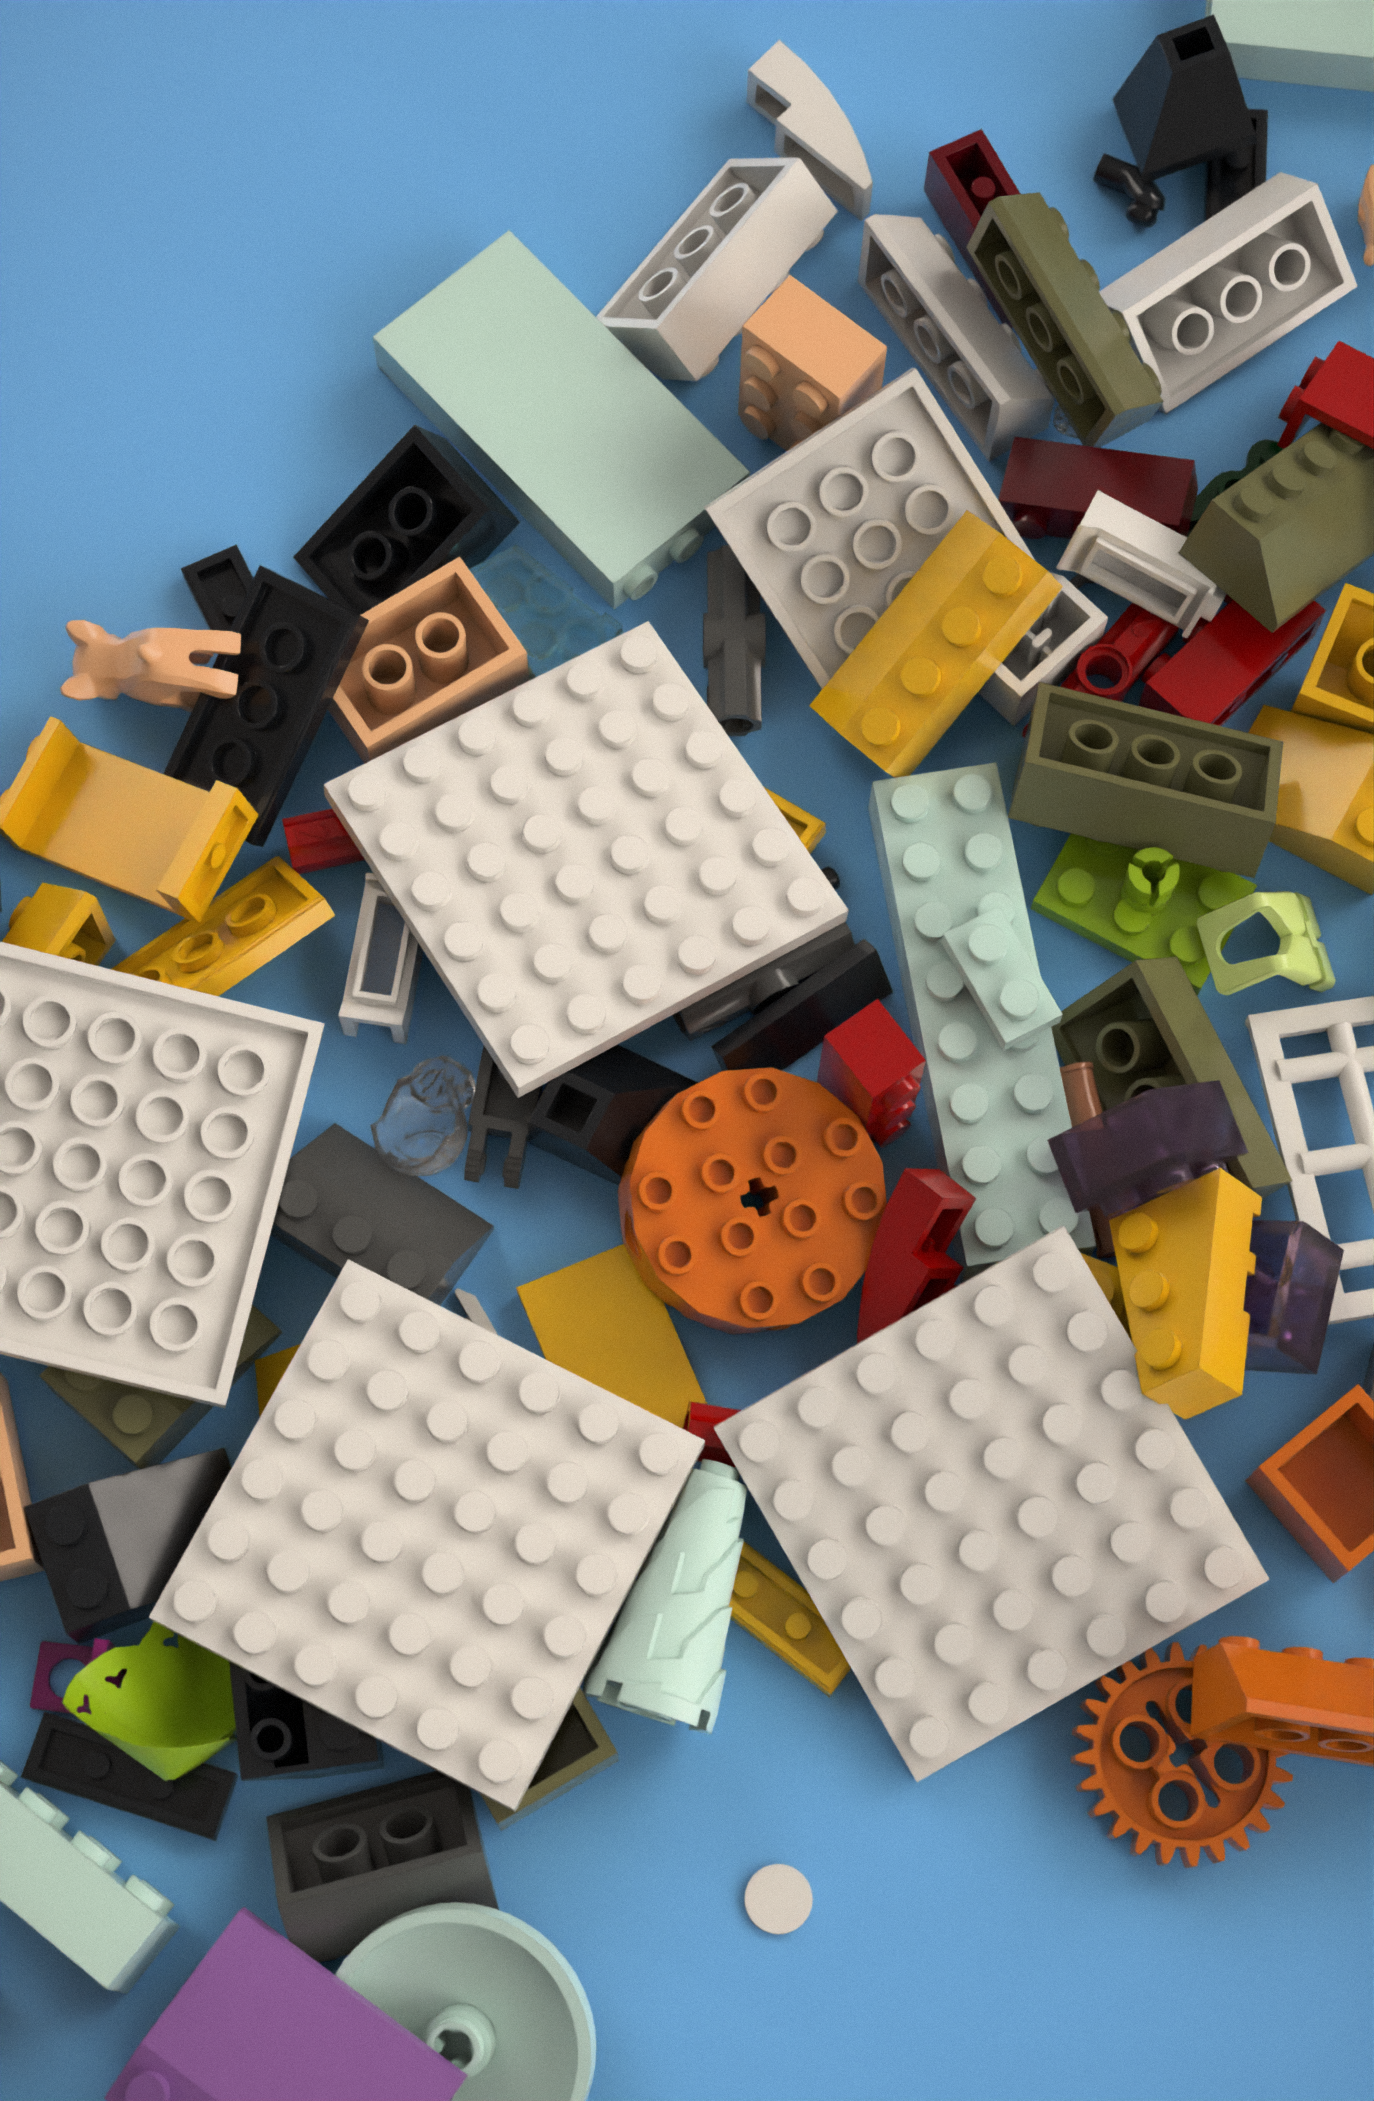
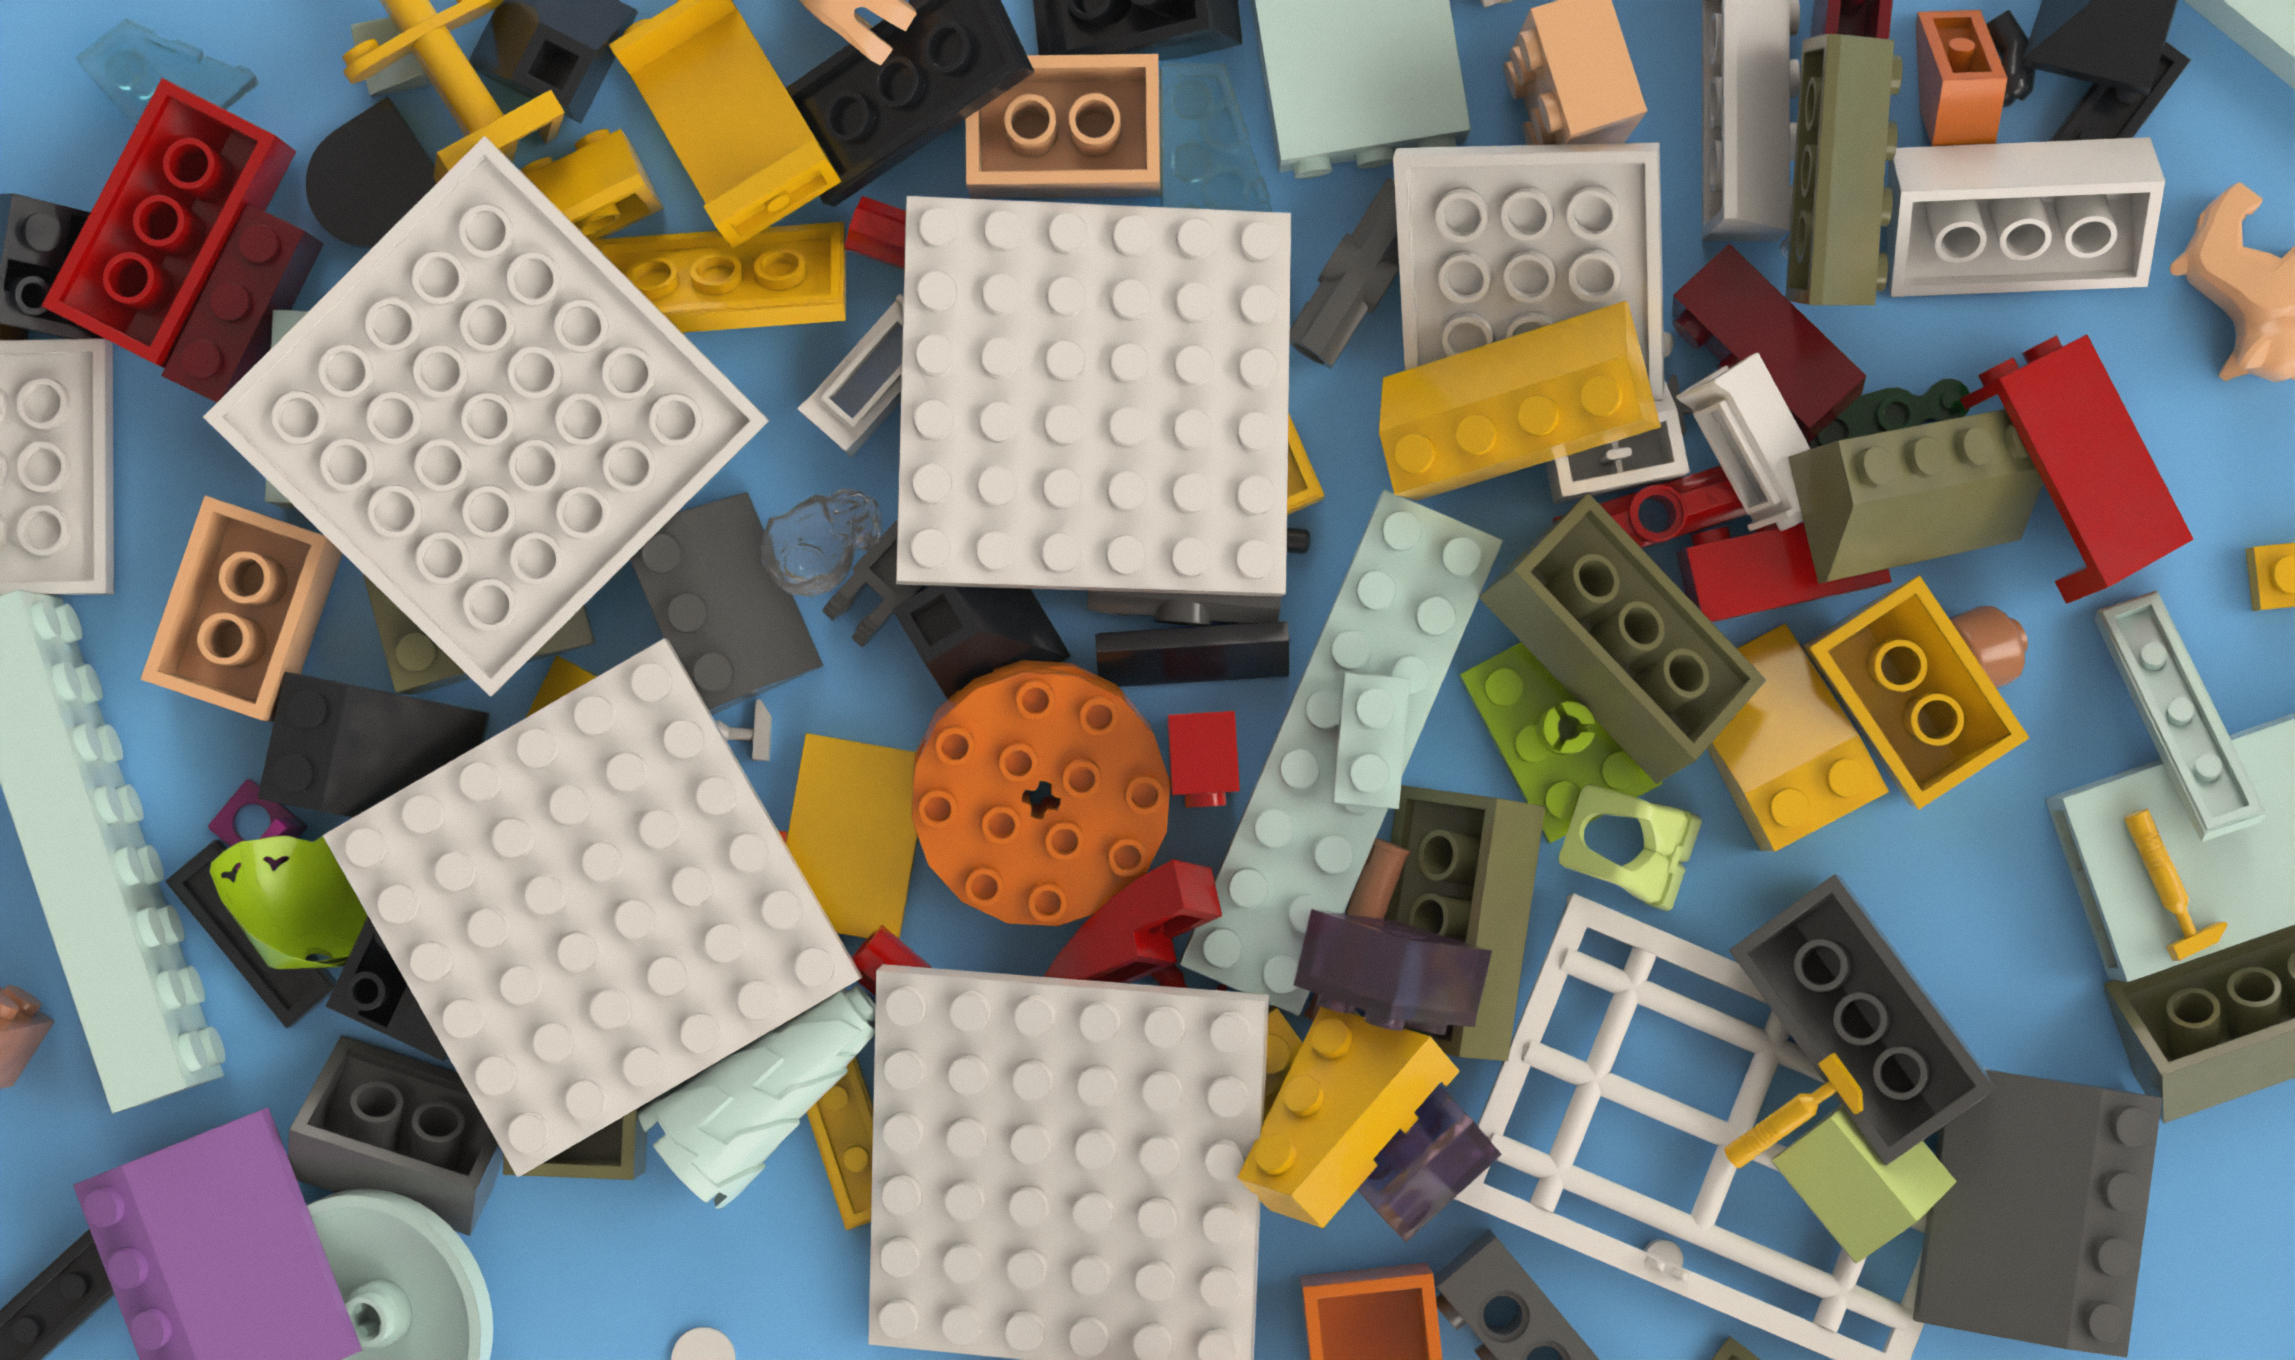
camera: 35 degrees right, 15 degrees up
(1107, 221) = (1958, 78): none -> orange slope

